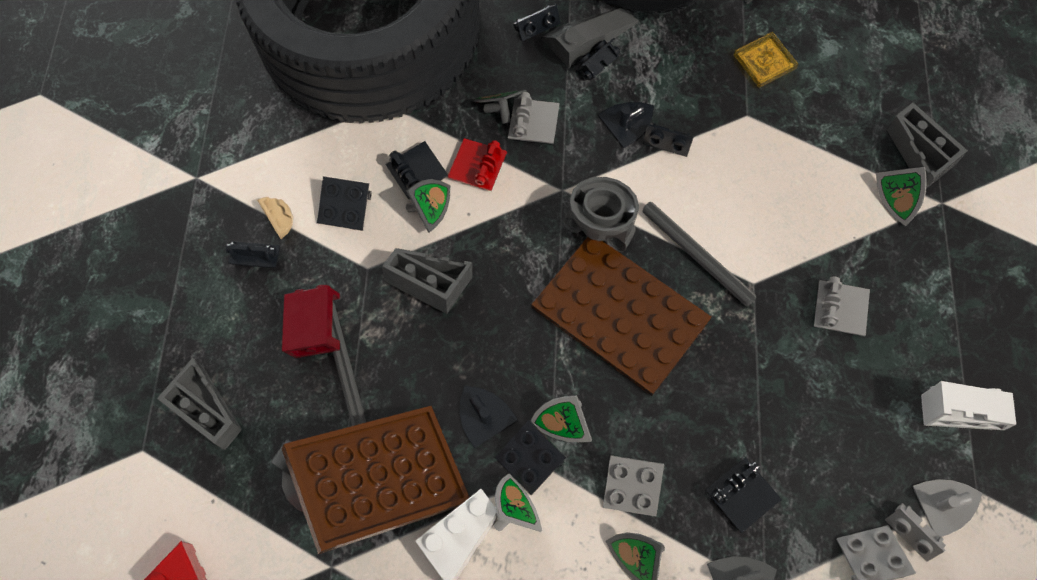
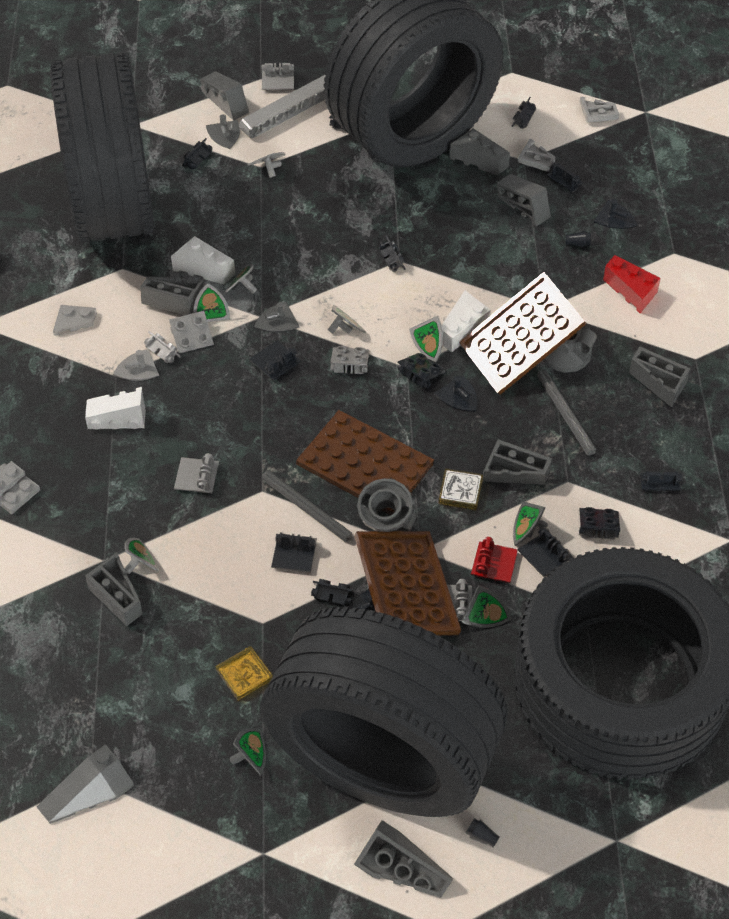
camera: 170 degrees right, 15 degrees down
(278, 214) = (651, 510): tan plate -> none
(309, 322) = (599, 430): dark red panel -> none
(502, 263) = (460, 489): none -> tile
(562, 420) = (397, 391): shield -> none
(584, 126) = (407, 579): none -> reddish brown plate
(713, 191) = (294, 552): none -> black hinge

